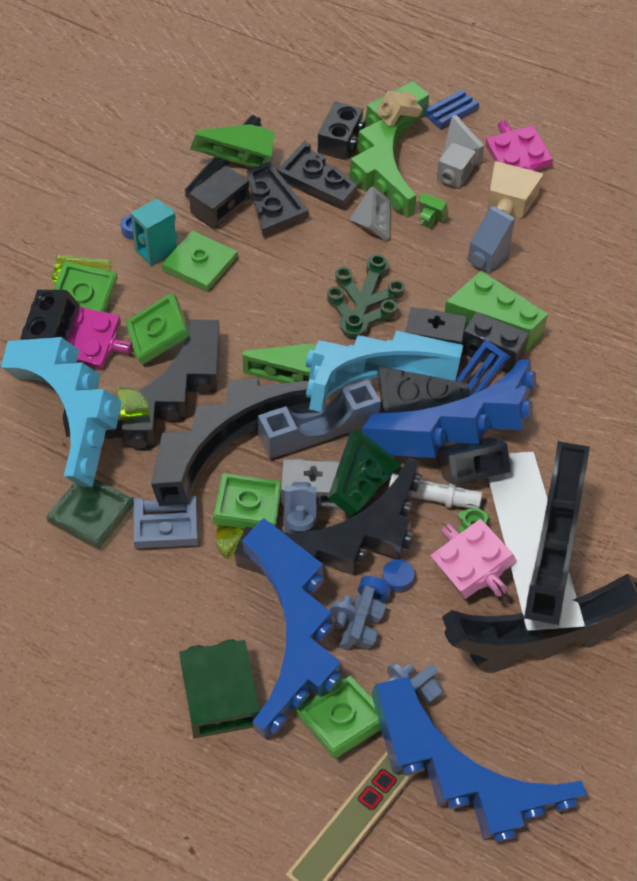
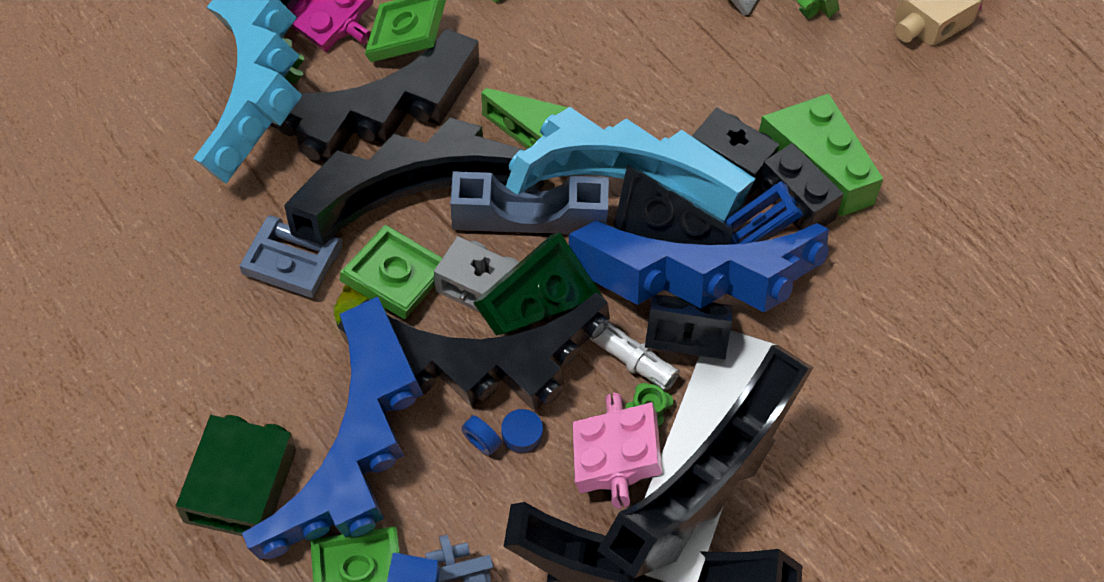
camera: 25 degrees right, 5 degrees up
(90, 512) = (215, 212): clear green plate -> none
(132, 402) = (319, 101): clear neon green tile -> none
(300, 507) = (442, 302): sand blue hips -> none
(354, 615) = (431, 479): sand blue hips -> none
(357, 322) = (711, 46): dark green plant -> none
(491, 240) = (867, 61): sand blue slope -> none

